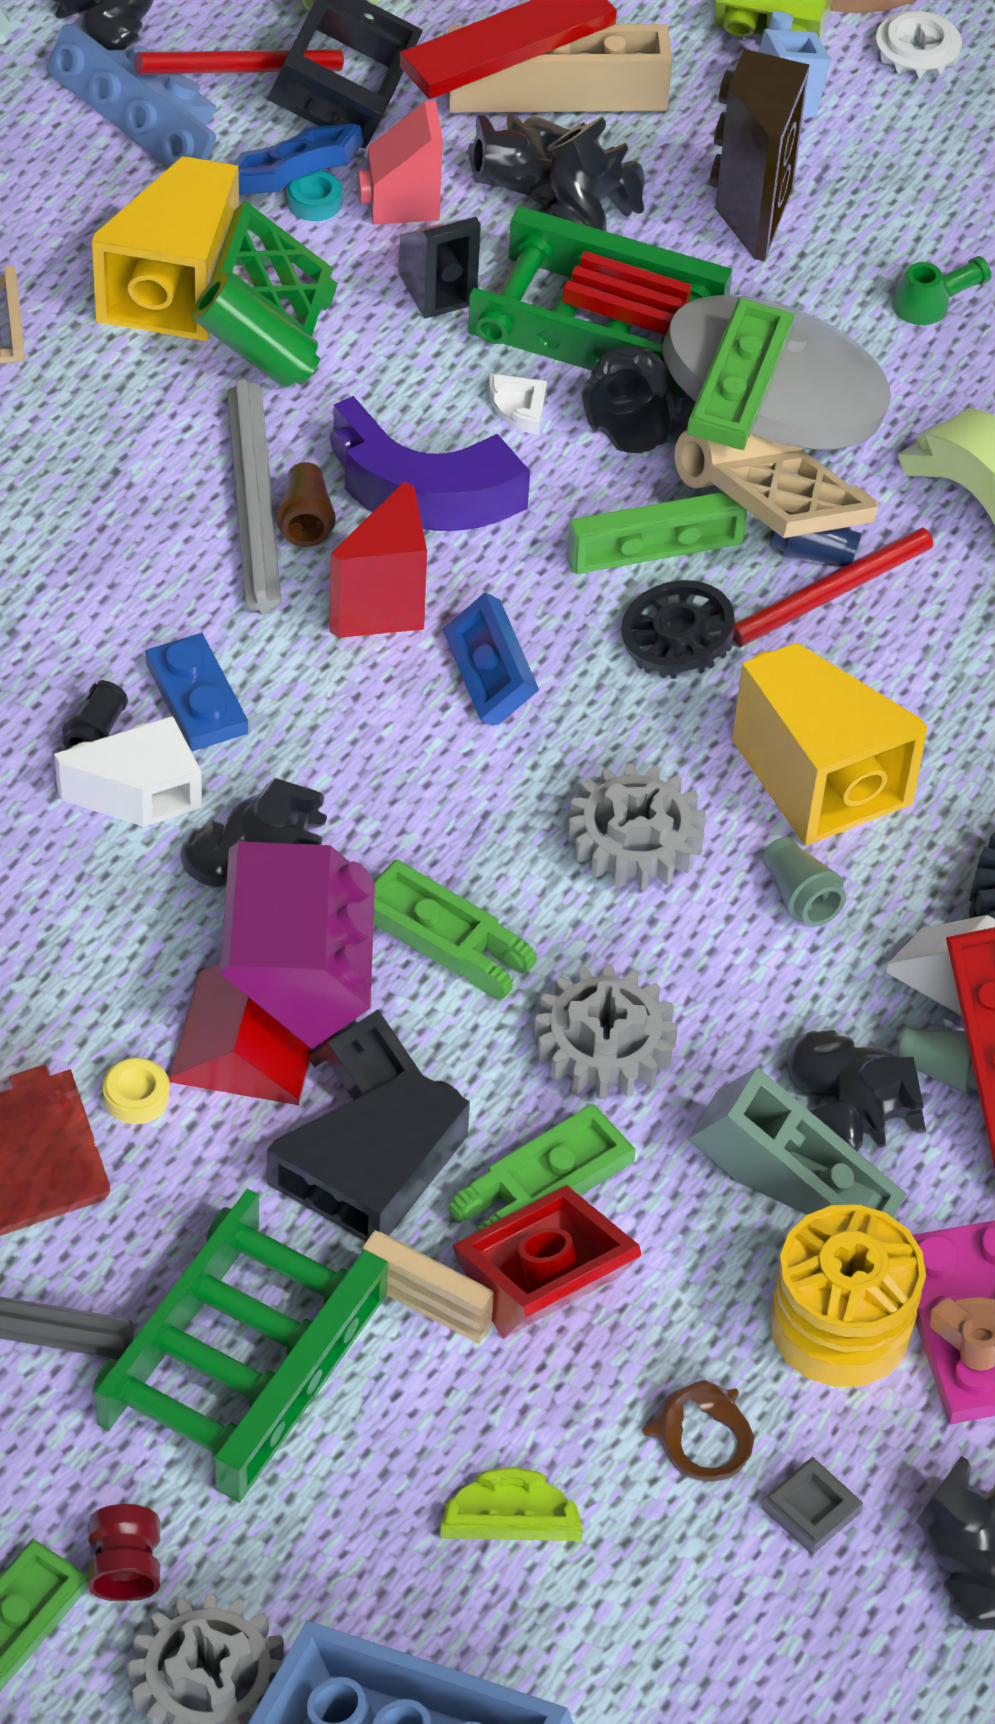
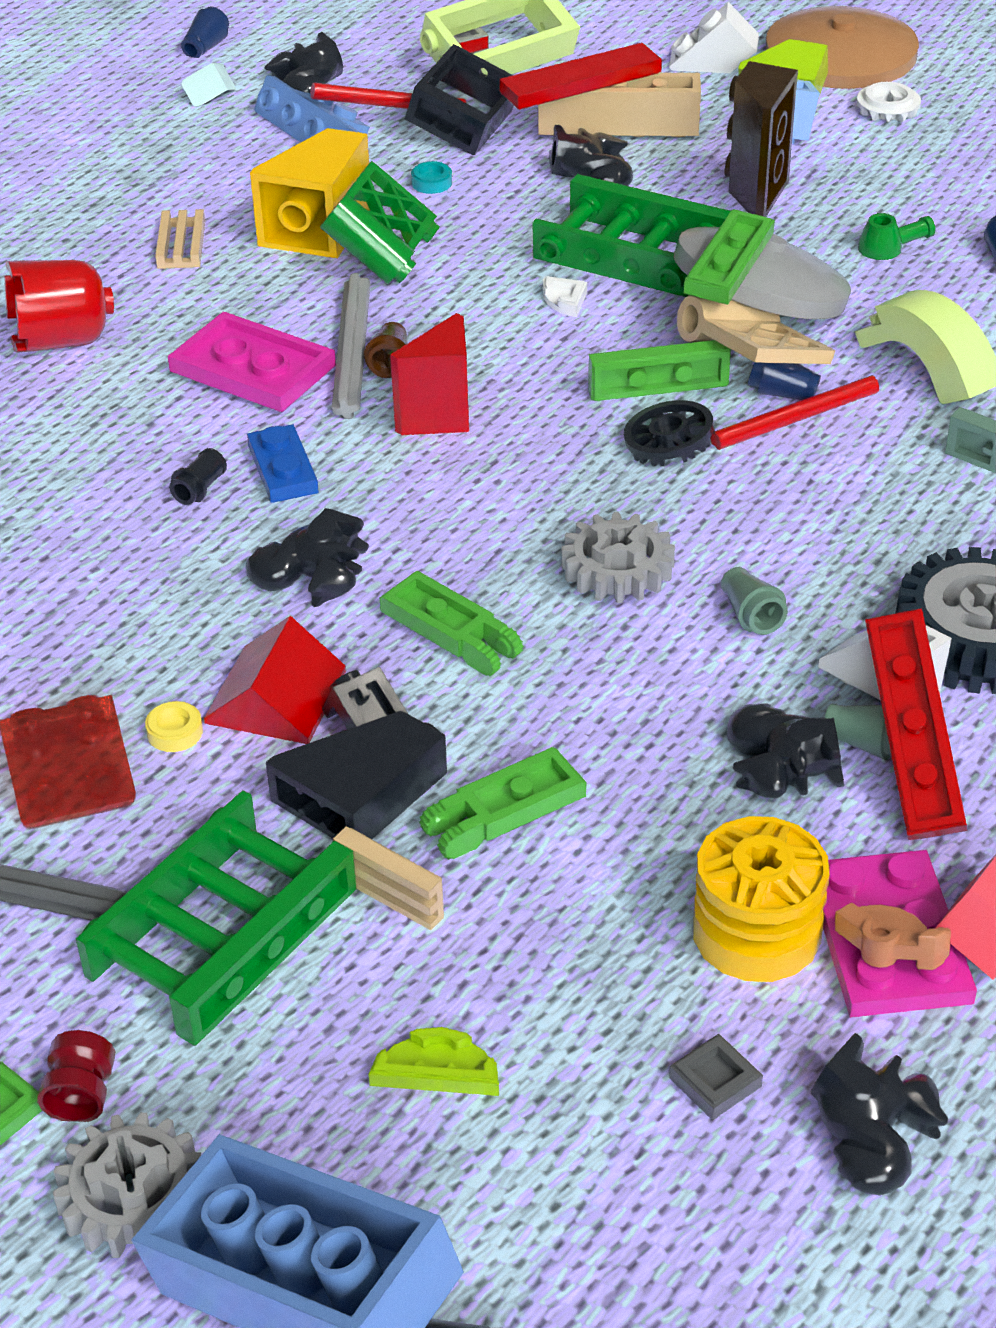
camera: 10 degrees right, 10 degrees down
(129, 530) = (252, 361): none -> dark pink plate
(132, 774) = (216, 509): white slope -> none
(299, 935) = (319, 608): magenta slope -> none
(309, 151) = (422, 152): blue tile -> none
(405, 170) = (497, 156): coral slope -> none
(441, 265) = (513, 204): black slope -> none
(451, 488) = (495, 341): dark purple arch -> none
(490, 659) = (515, 446): blue plate -> none
(545, 1258) = (496, 862): red slope -> none
(572, 1031) = (572, 697): light grey gear -> none
(587, 173) = (630, 158): black animal -> none
(629, 286) = (648, 223): red tile -> none
(631, 399) = (647, 287): black hair -> none
(722, 1407) = (631, 983): reddish brown piece -> none
(787, 1151) = (711, 783): sand green slope -> none
(824, 742) = (779, 499): yellow slope -> none

